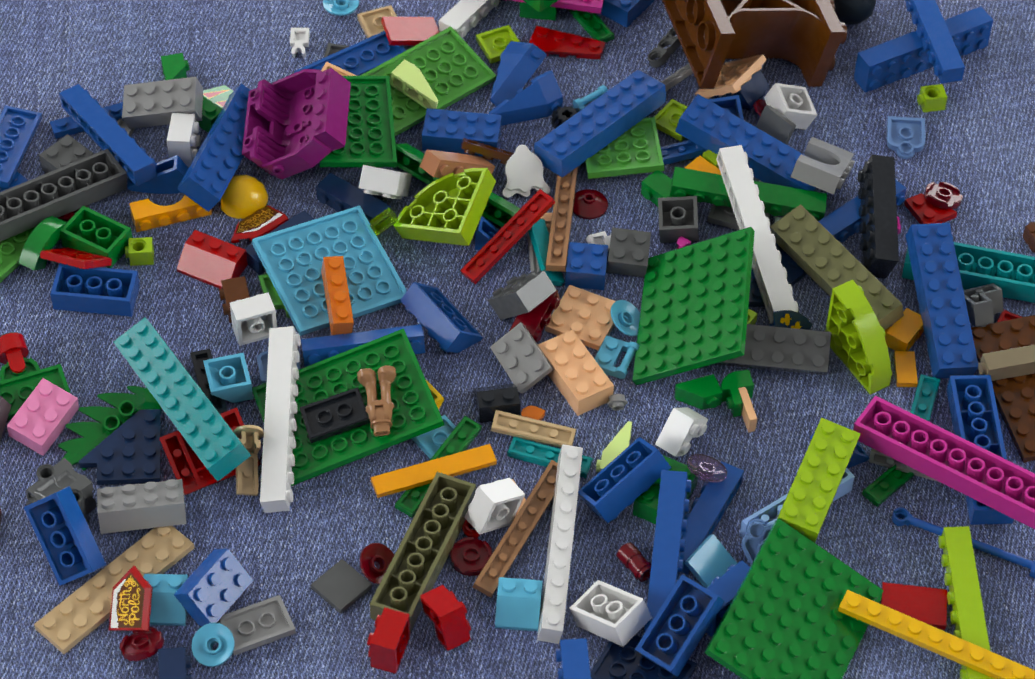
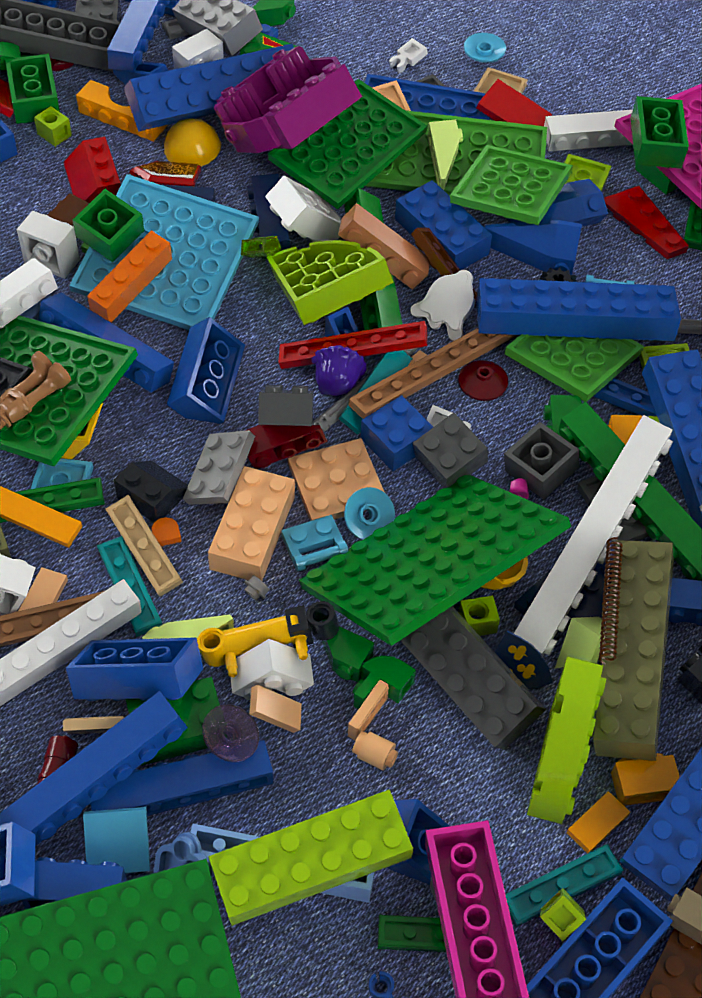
camera: 45 degrees right, 5 degrees up
(290, 274) = (108, 225): none -> green brick
(480, 76) = (511, 184): none -> bright green plate
(517, 256) = (337, 369): none -> dark purple hair
(635, 524) = (90, 724): none -> tan tile
(671, 396) = (293, 628): none -> yellow piece
(706, 444) = (275, 708): none -> light nougat tile
(772, 424) = (375, 750): none -> light nougat brick
(802, 255) = (605, 608): none -> reddish brown piece
(809, 291) = (581, 640): none -> yellowish green slope
(942, 414) = (562, 914): none -> lime brick

